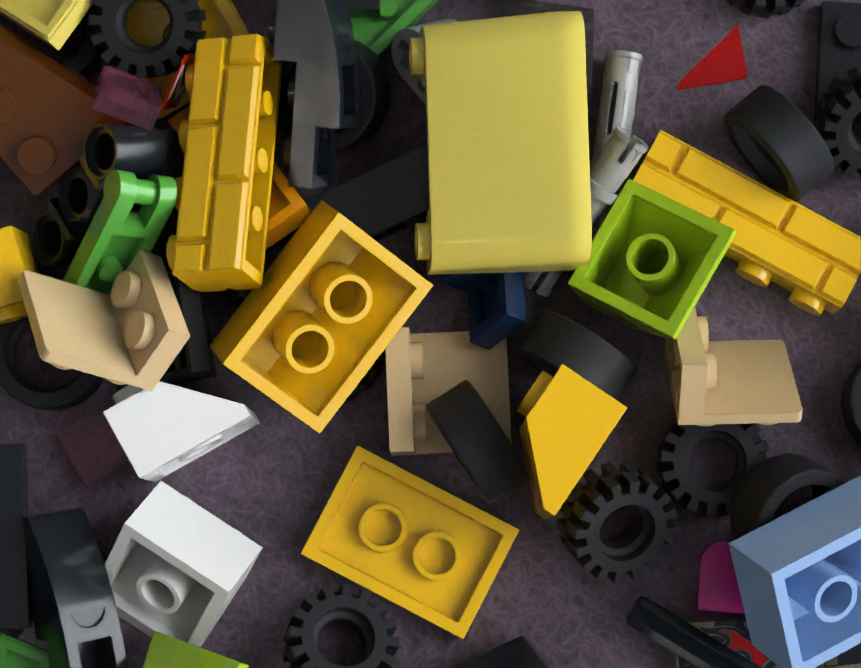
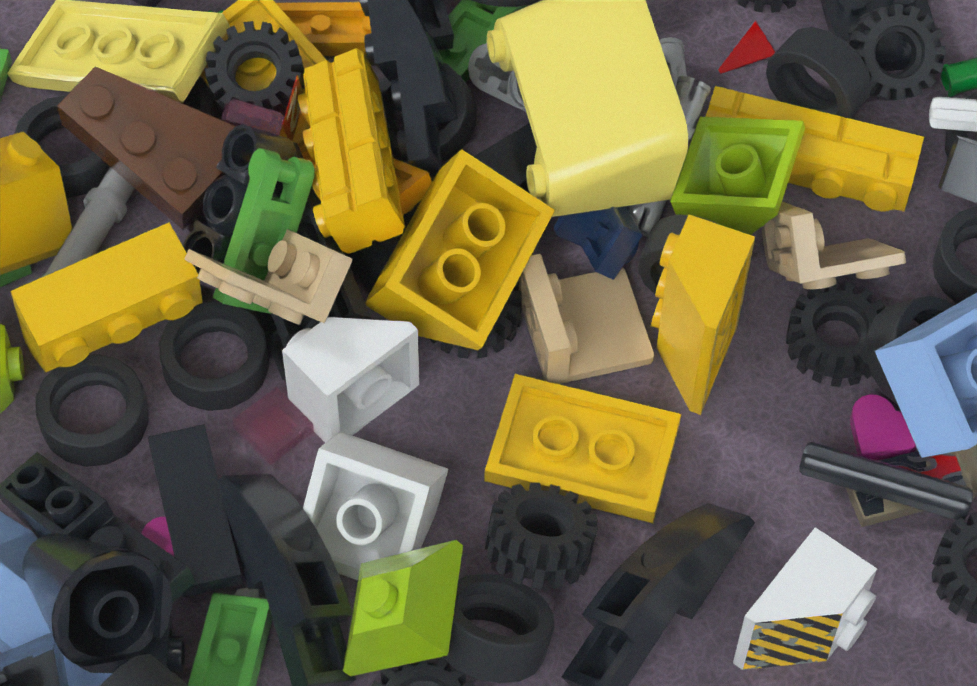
camera: 15 degrees left, 25 degrees down
(478, 441) = (626, 332): black tyre -> none
(633, 546) = (795, 381): black tyre -> none

